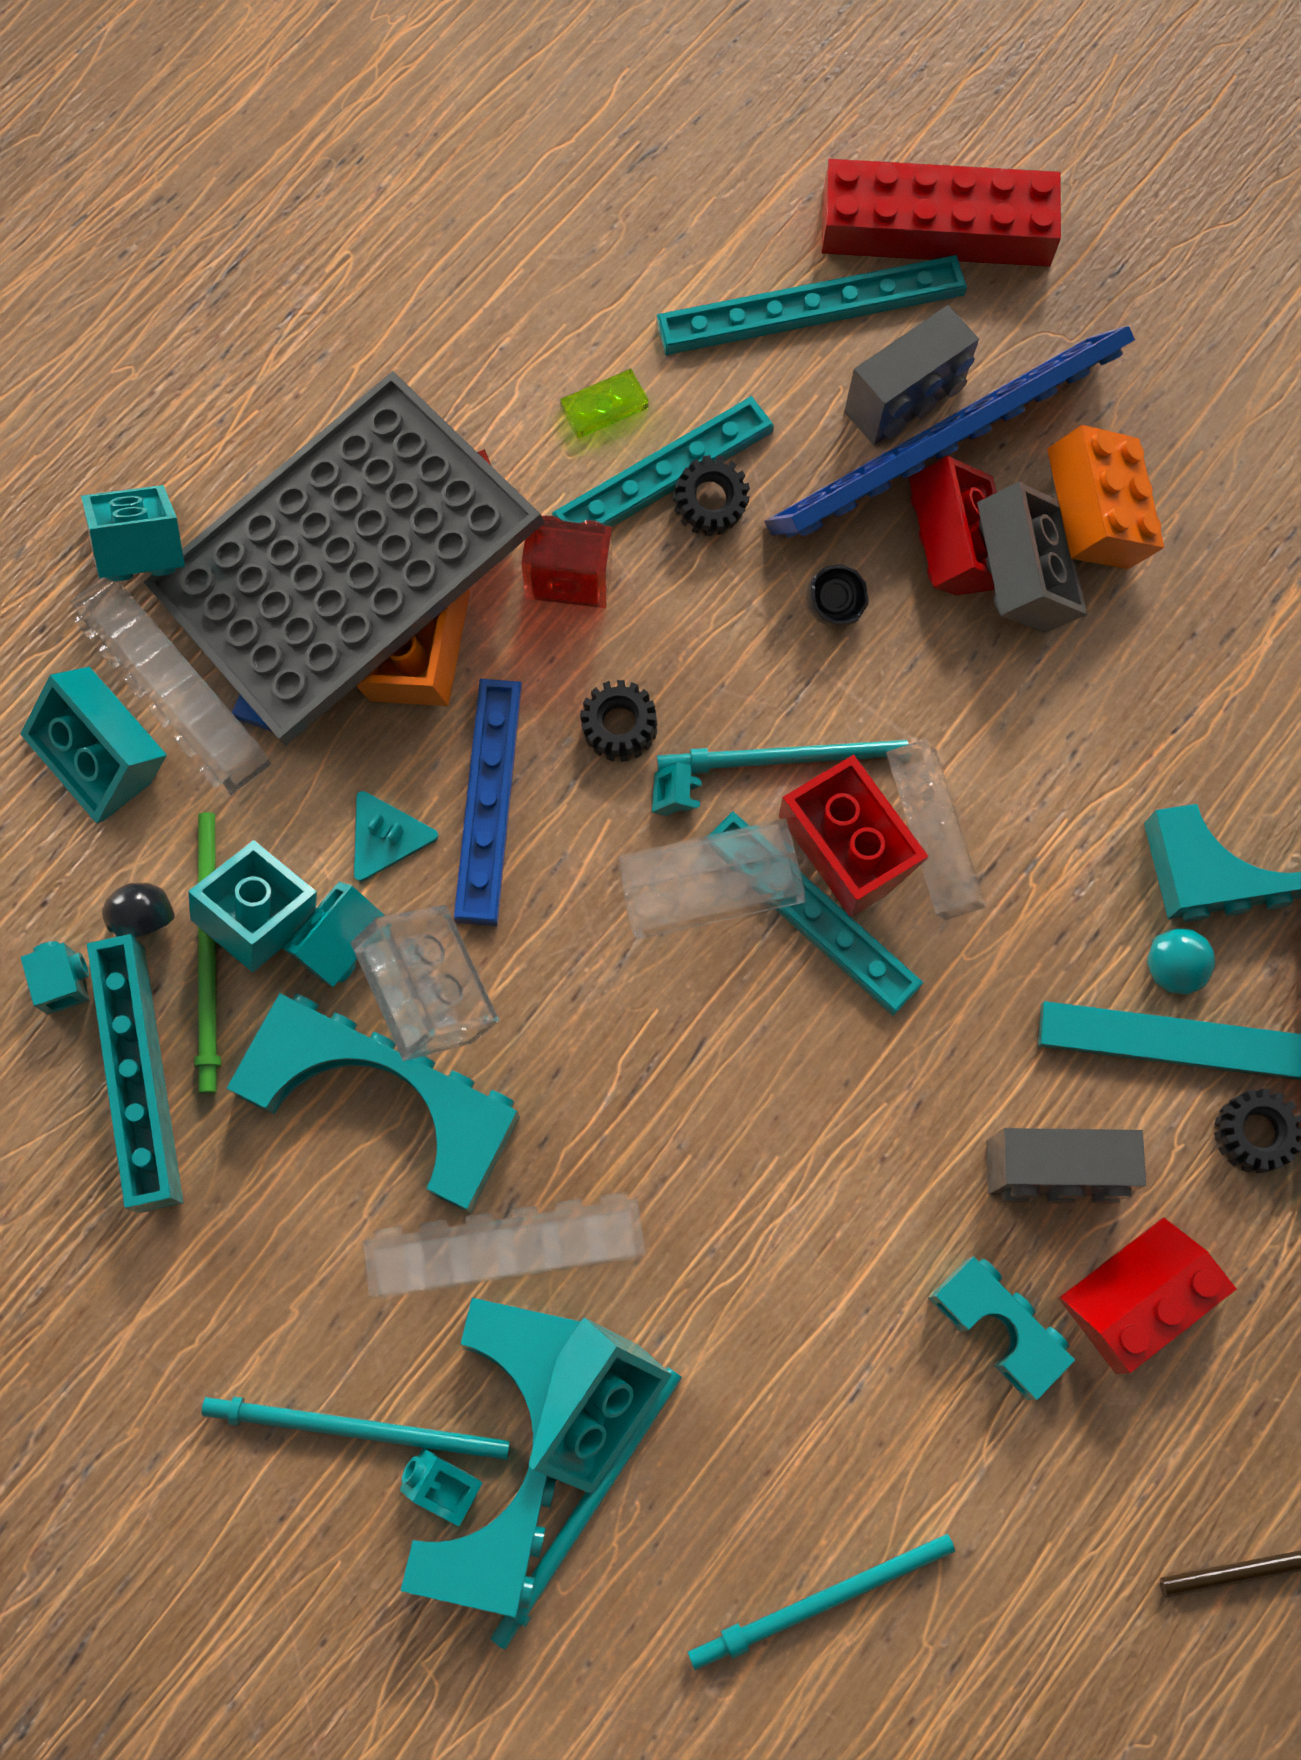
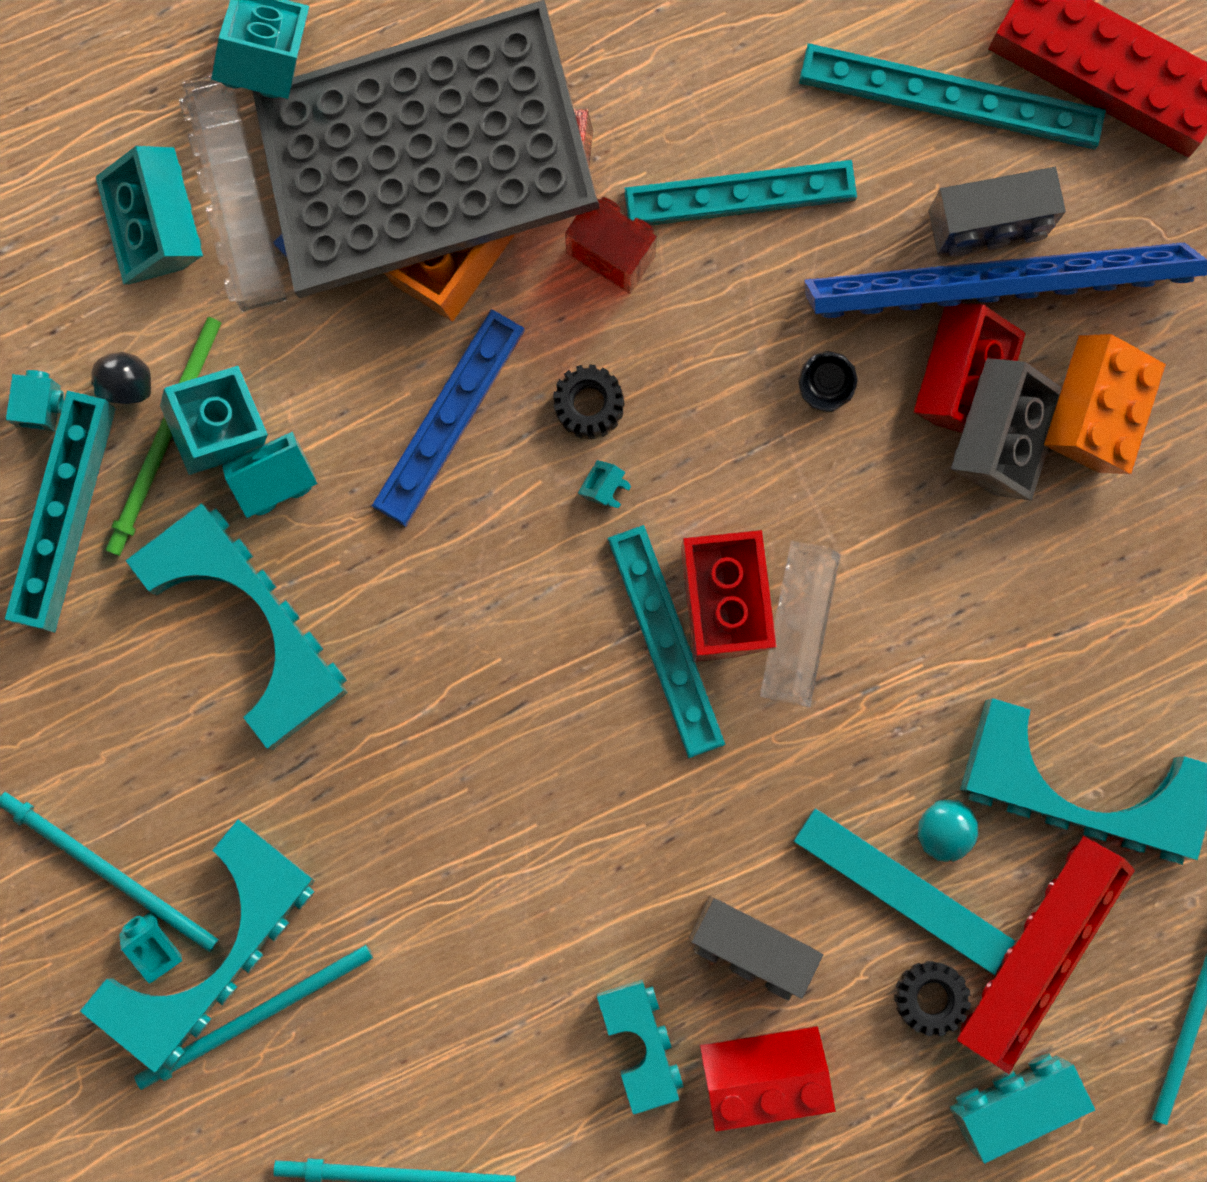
camera: 30 degrees right, 10 degrees up
(385, 836) = (350, 407): teal piece -> none
(424, 981) = (319, 550): clear brick -> none
(503, 1247) = (283, 791): clear brick -> none
(594, 1405) = (291, 946): teal slope -> none
(604, 403) = (720, 105): clear neon green plate -> none
(702, 760) = (640, 469): teal bar -> none
(711, 879) = (594, 573): clear slope -> none
(721, 474) = (790, 238): black tyre -> none

